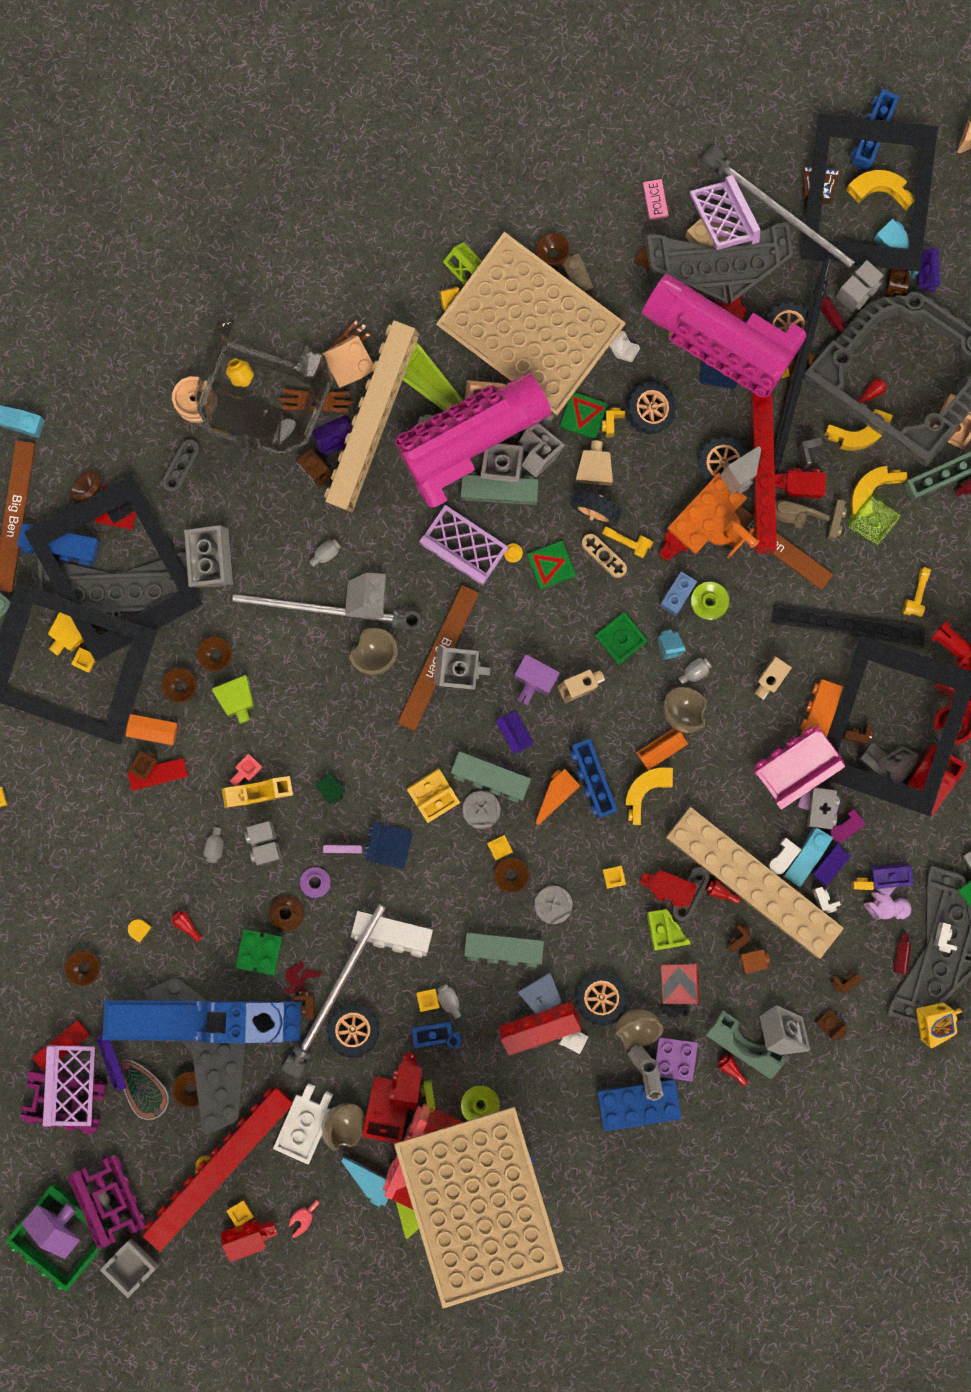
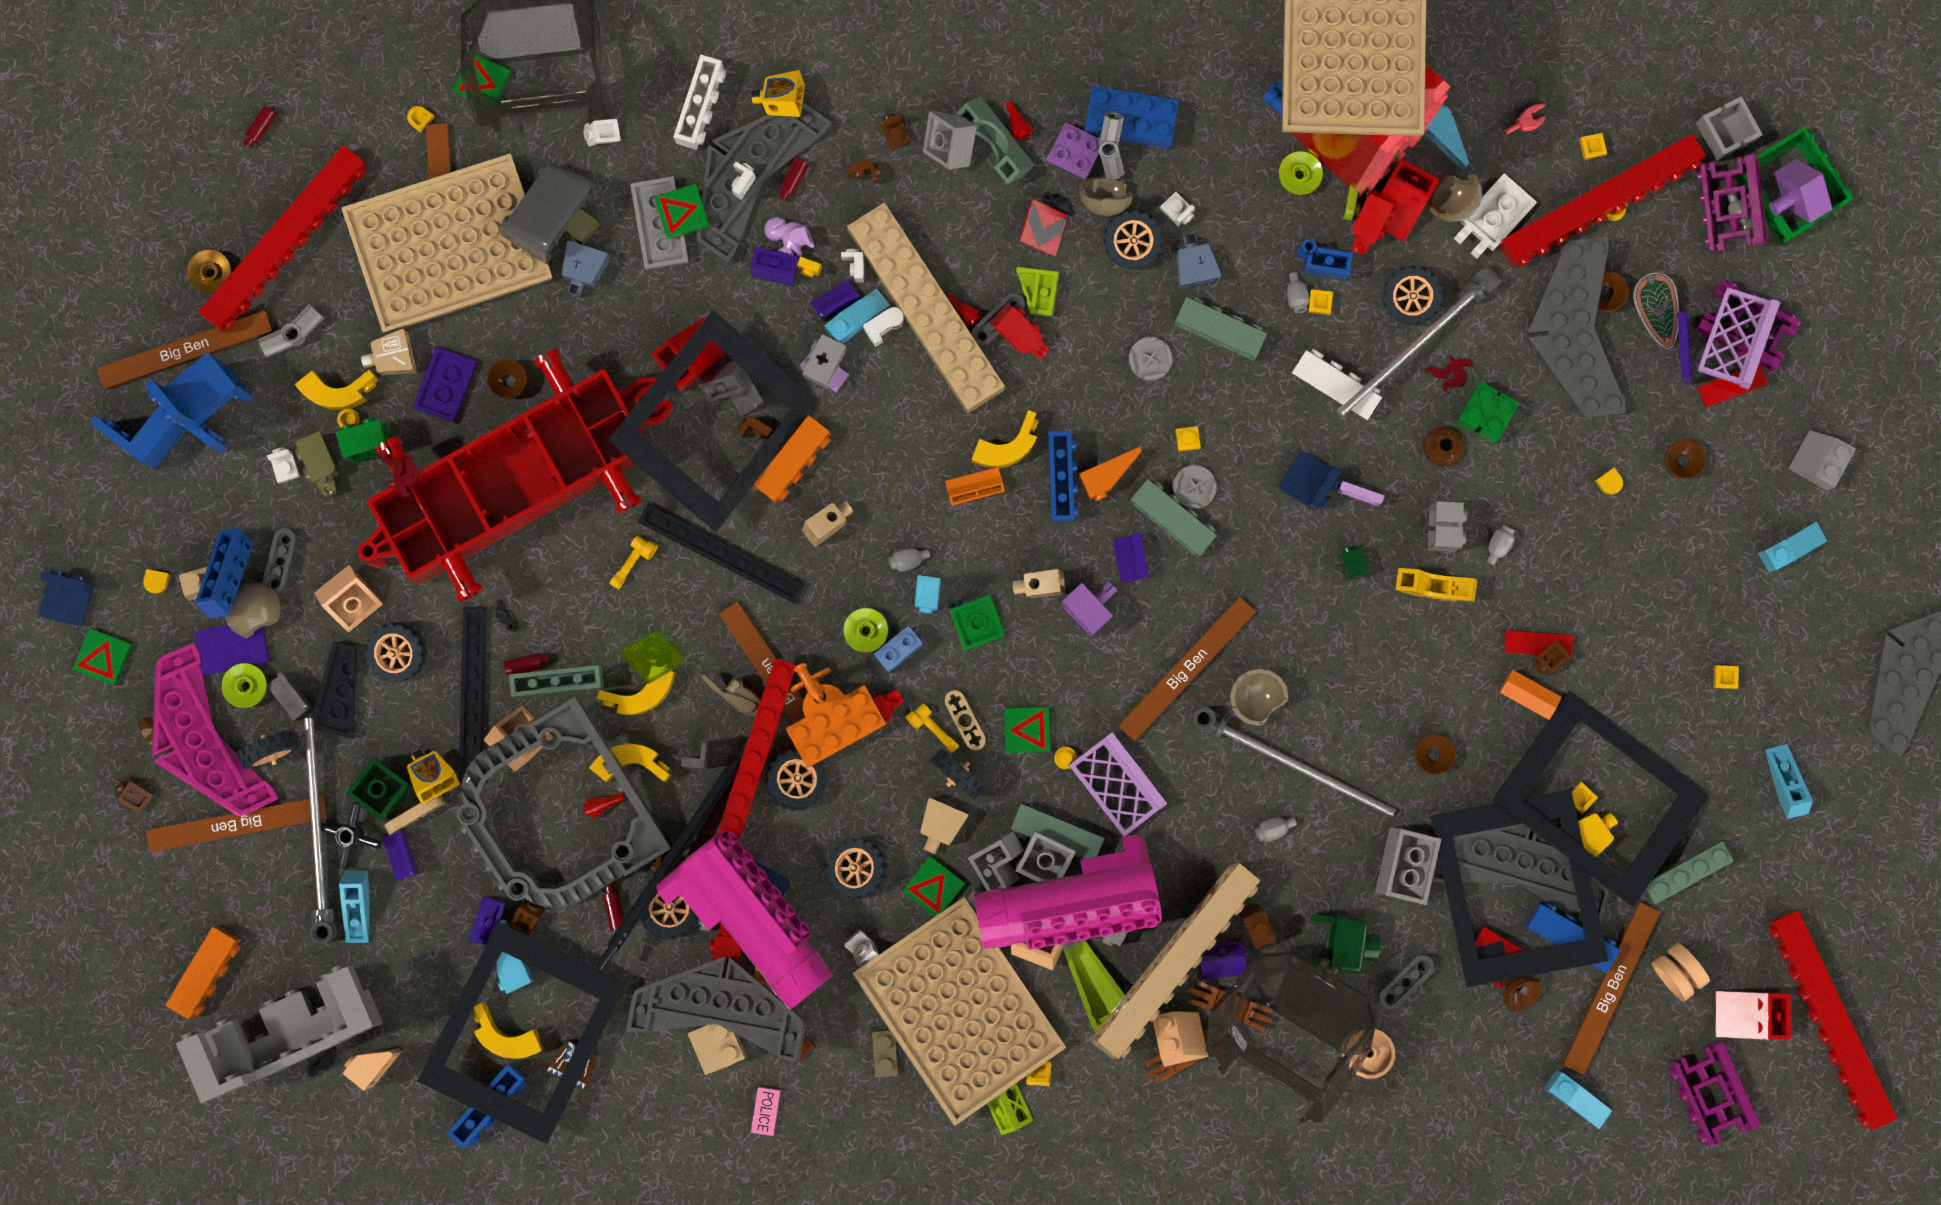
camera: 160 degrees left, 0 degrees up
(170, 680) = (1496, 732): reddish brown piece -> none
(183, 922) = (1560, 474): red cone -> none
(188, 1021) = (1588, 362): blue piece -> none
(235, 698) = (1426, 698): lime torso -> none
(238, 479) = (1348, 943): none -> dark green piece
(239, 372) = (1307, 1065): yellow head -> none
(247, 769) = (1438, 616): coral plate -> none
(247, 1239) = (1595, 117): red hinge -> none
(305, 882) = (1396, 478): medium lavender piece -> none
(308, 1007) = (1451, 337): reddish brown bracket -> none
(366, 596) = (1245, 762): light grey slope -> none
(433, 795) = (1242, 519): yellow slope -> none
(468, 668) = (1167, 635): light grey hinge -> none
(522, 875) = (1191, 393): reddish brown piece -> none
(540, 1028) = (1210, 229): red brick -> none
(550, 242) = (908, 1100): reddish brown piece -> none
(608, 423) = (910, 866): yellow bracket -> none
(614, 877) = (1074, 365): yellow plate -> none
(684, 710) = (936, 517): dark tan cylinder -> none
(714, 159) = (683, 1134): flat silver piece -> none
(737, 942) = (966, 251): reddish brown bracket -> none
(740, 473) = (782, 754): light grey slope -> none
(741, 212) = (675, 1060): lavender fence -> none
(754, 961) = (954, 225): dark orange brick -> none
(799, 766) = (832, 413): panel -> none
(802, 484) = (718, 726): red hinge -> none
(839, 512) = (687, 680): dark tan plate -> none
(848, 827) = (803, 333): magenta leg -> none
(858, 288) = (568, 929): light grey piece -> none

